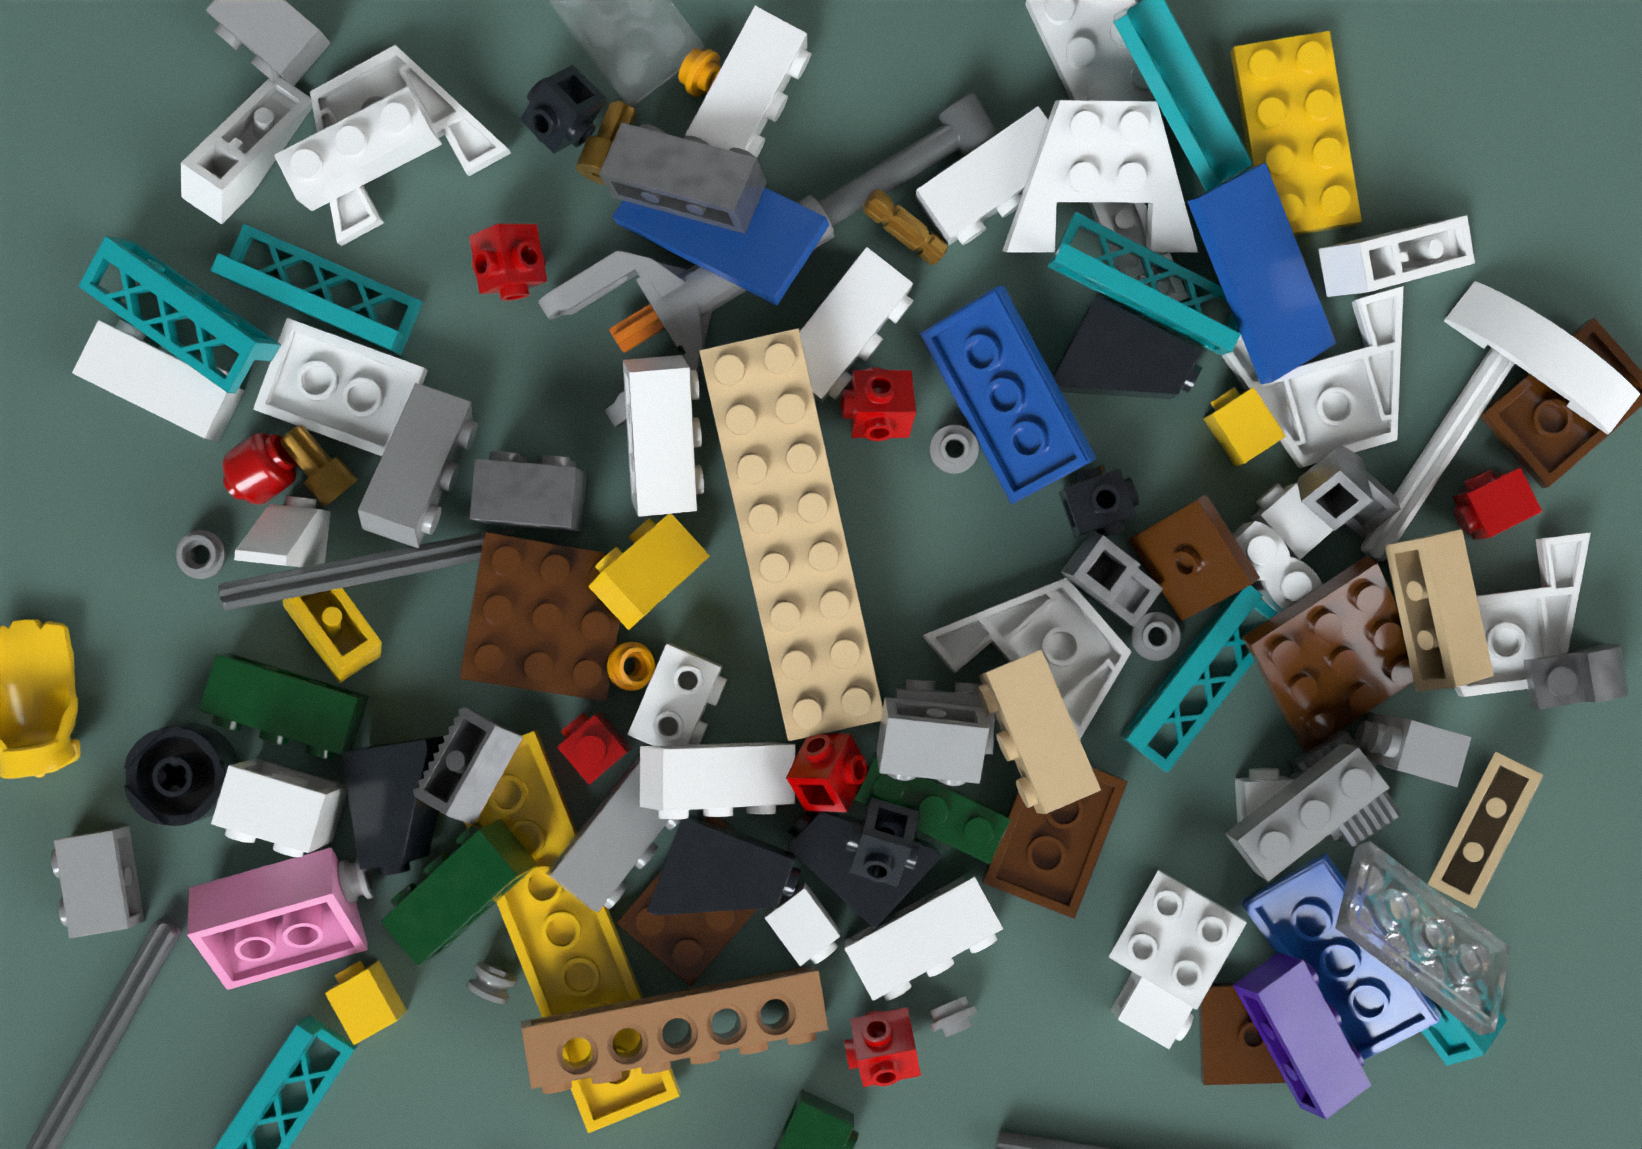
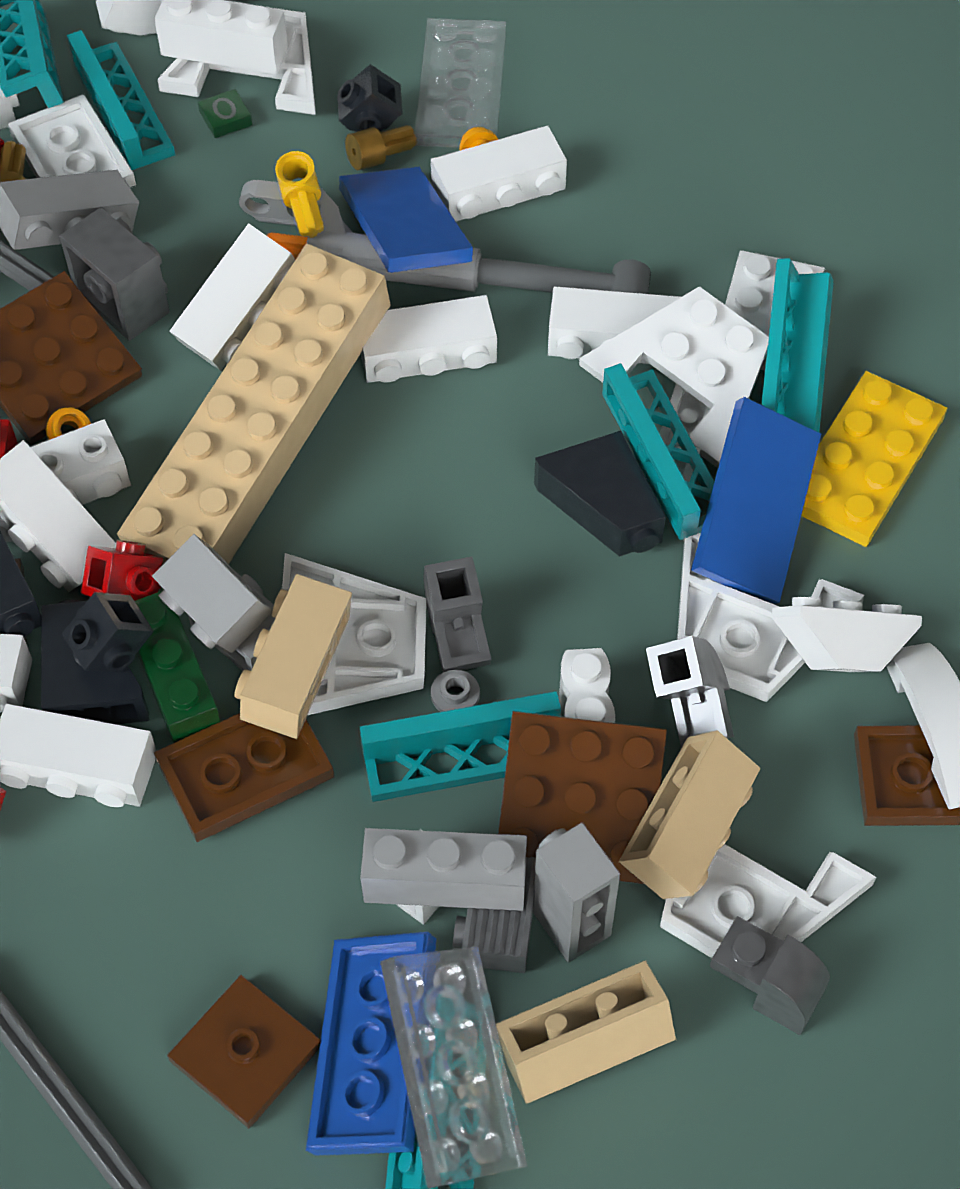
camera: 40 degrees right, 30 degrees down
(428, 221) = (225, 113): none -> dark green tile
(508, 260) = (248, 152): red brick -> none
(627, 287) = (301, 194): none -> yellow axle
(648, 570) = (141, 370): yellow brick -> none
(684, 176) = (404, 173): flat silver brick -> none
(879, 404) = (402, 393): red brick -> none
(905, 227) = (526, 311): pearl gold axle -> none
(950, 464) = (428, 477): light grey plate -> none
(953, 1017) = (32, 833): light grey plate -> none
(1007, 395) = (497, 454): blue tile -> none
(1082, 508) = (500, 562): black brick -> none
(1152, 1011) = (185, 955): white brick -> none
(1178, 939) = (257, 908): white brick -> none
(1194, 558) = (532, 647): reddish brown plate -> none
(1243, 425) = (655, 600): yellow brick -> none
(1291, 519) = (633, 690): white brick -> none
(1303, 1034) = (283, 1066): brick -> none
(1396, 257) = (864, 563): white slope -> none
(1428, 339) = (845, 635): none -> white slope
(1439, 451) = (823, 728): white axle -> none
(1494, 503) = (811, 798): red brick -> none

